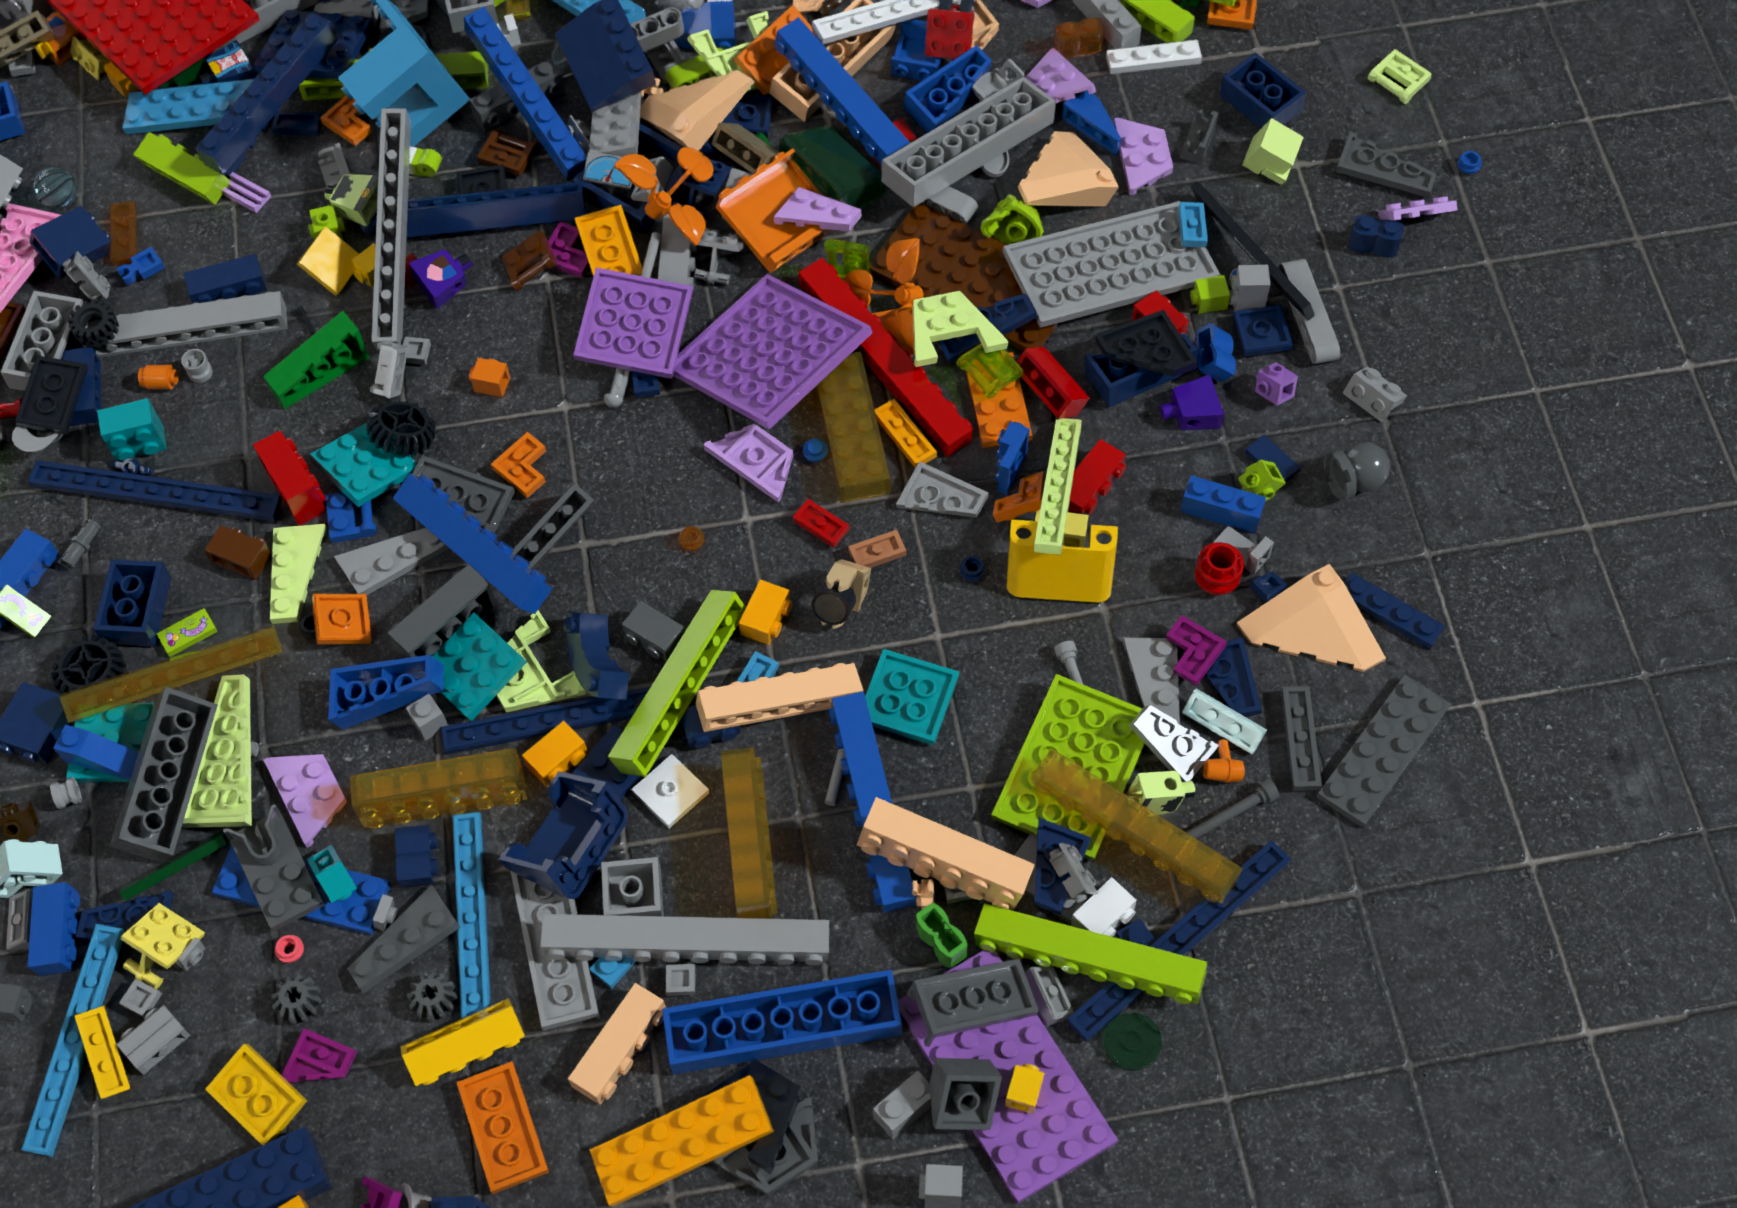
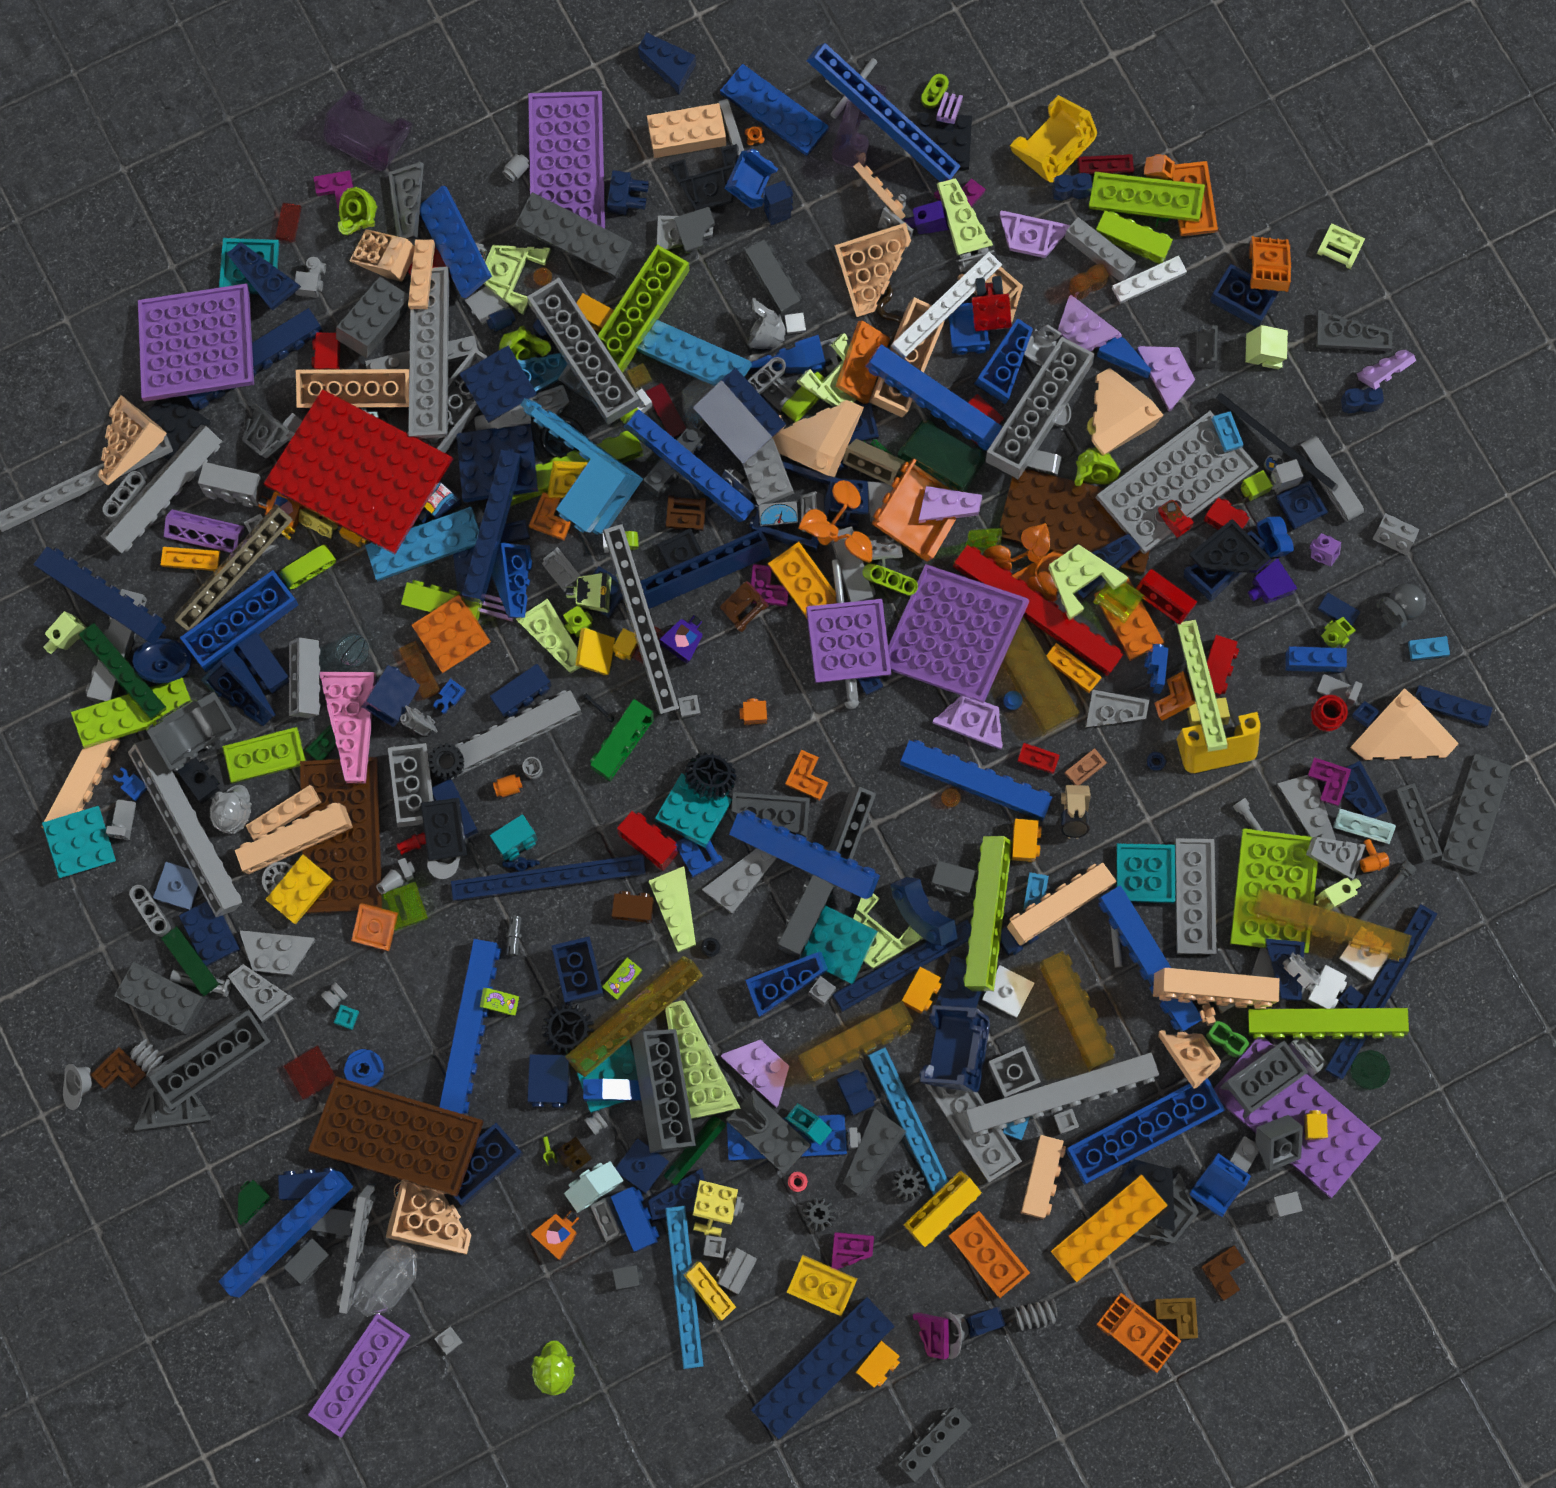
camera: 20 degrees left, 15 degrees up
(54, 97) = (307, 567): none -> lime beam
(98, 867) = (641, 1166): none -> dark blue plate
(174, 199) = (451, 633): none -> orange plate
(275, 160) = (511, 577): none -> blue wedge
(289, 227) = (551, 633): none -> yellowish green wing
(341, 619) = (729, 936): orange plate -> none
(390, 369) = (679, 730): light grey hinge -> none
(532, 43) = (666, 410): none -> dark red tile
(709, 261) = (898, 580): none -> lime beam
(732, 526) = (976, 780): none -> blue brick
(859, 1128) = (1219, 1185): none -> blue panel
(884, 941) = (1192, 1055): none -> light nougat wing
(964, 745) = (1195, 896): none -> light grey plate
(1092, 293) = (1175, 518): none -> red leg
(1169, 893) = (1363, 961): none -> white plate
(1303, 64) = (1270, 264): none -> orange plate
(1379, 534) = (1428, 648): none -> dark azure plate
(1469, 162) = (1412, 311): blue plate -> none

